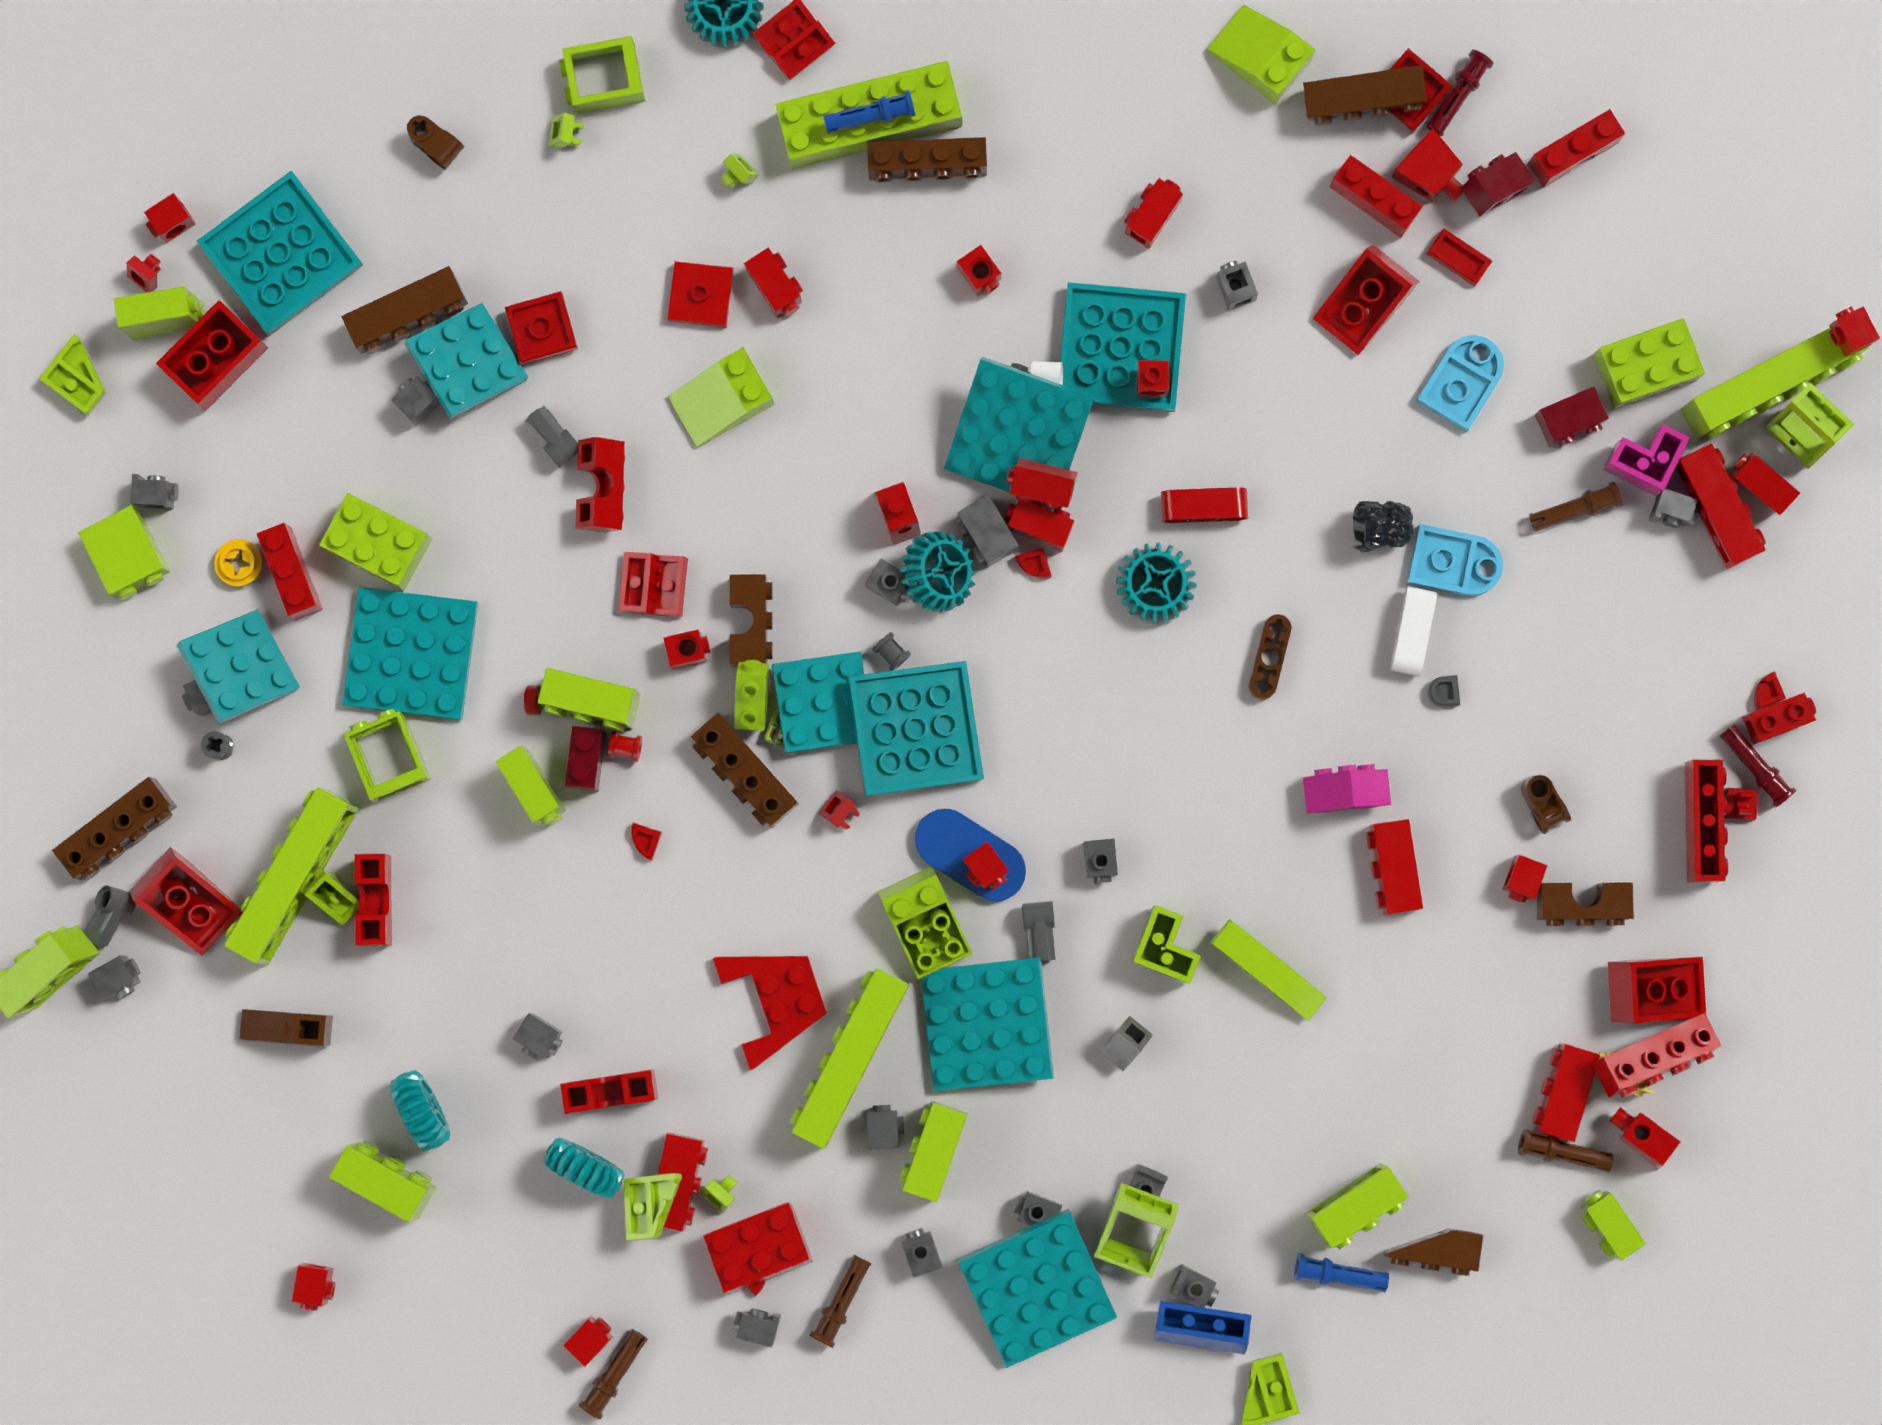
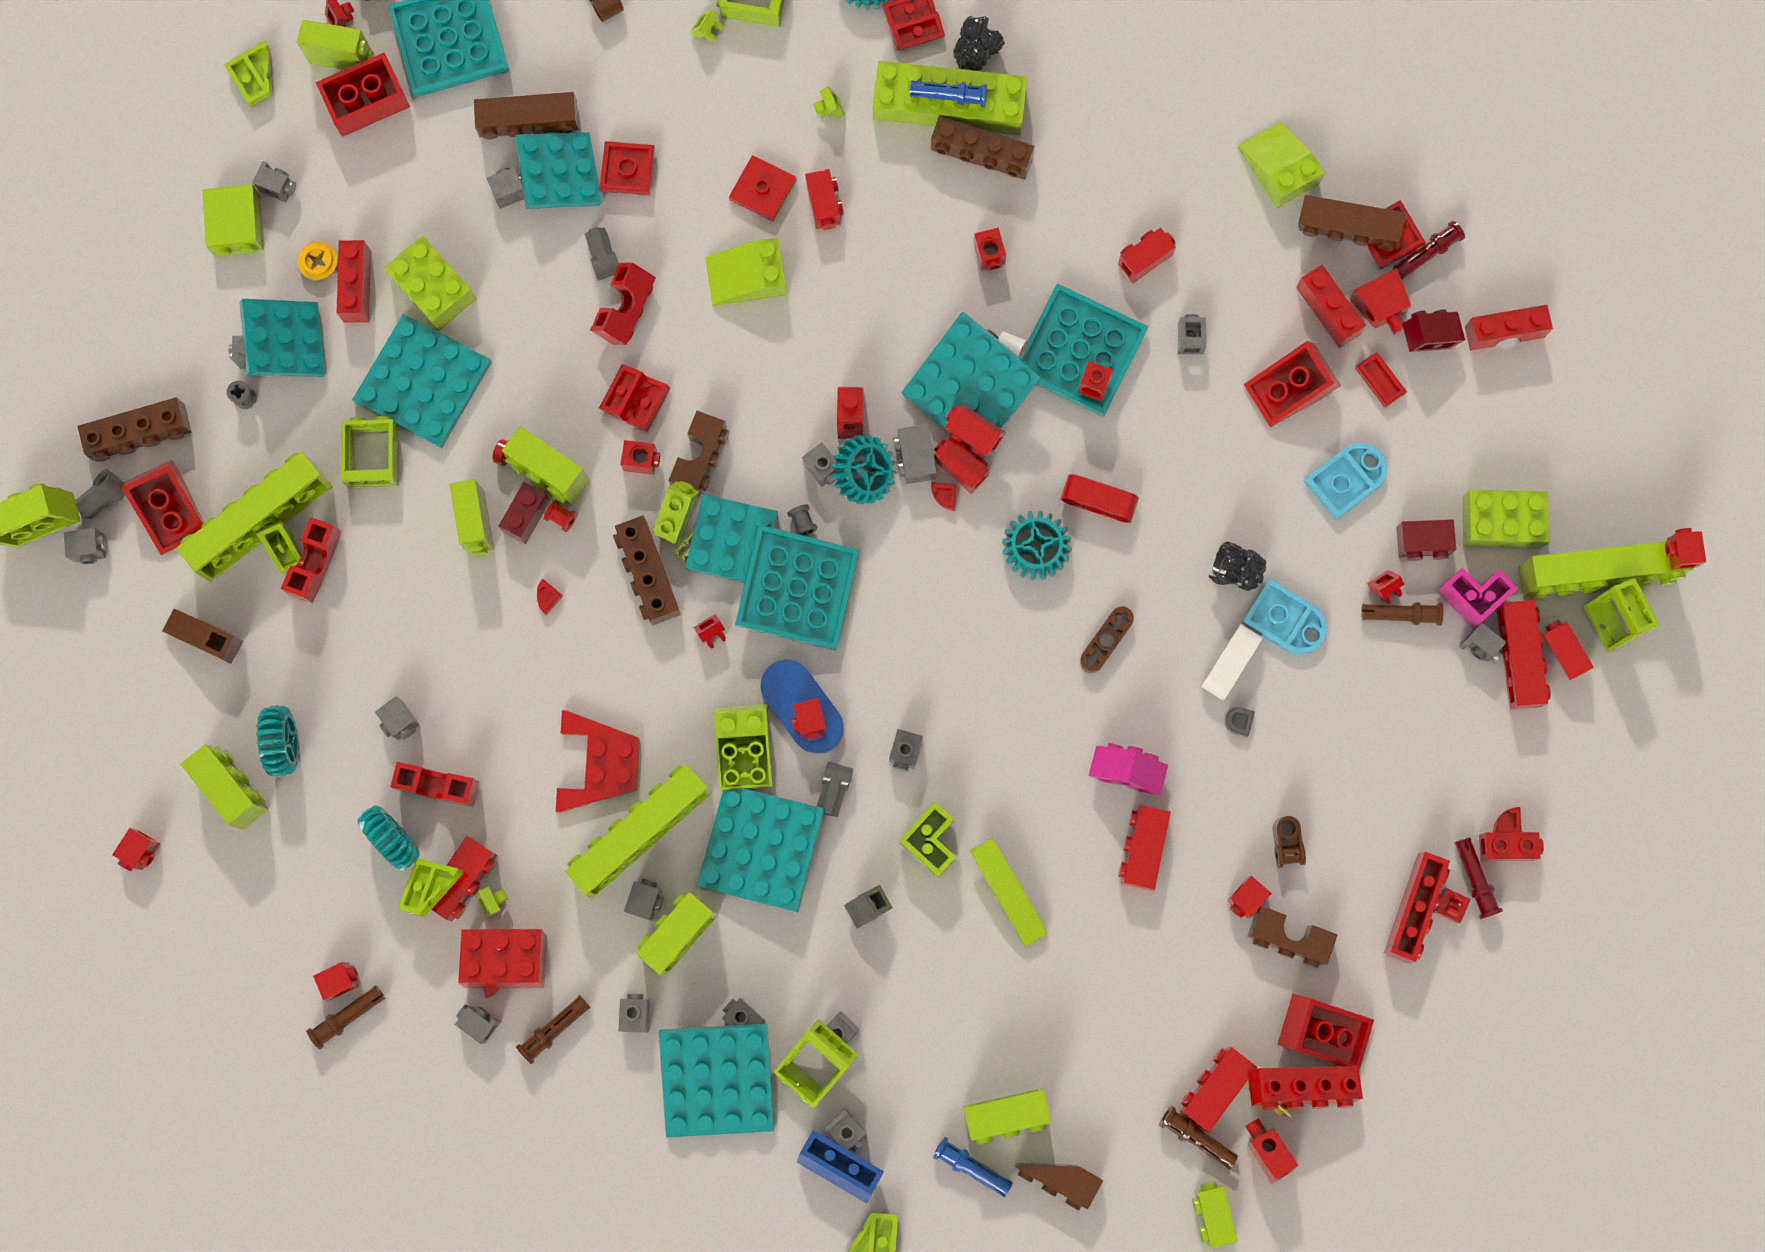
camera: 20 degrees right, 5 degrees down
(875, 42) = (976, 44): none -> black hair
(1547, 484) = (1386, 584): none -> red tile

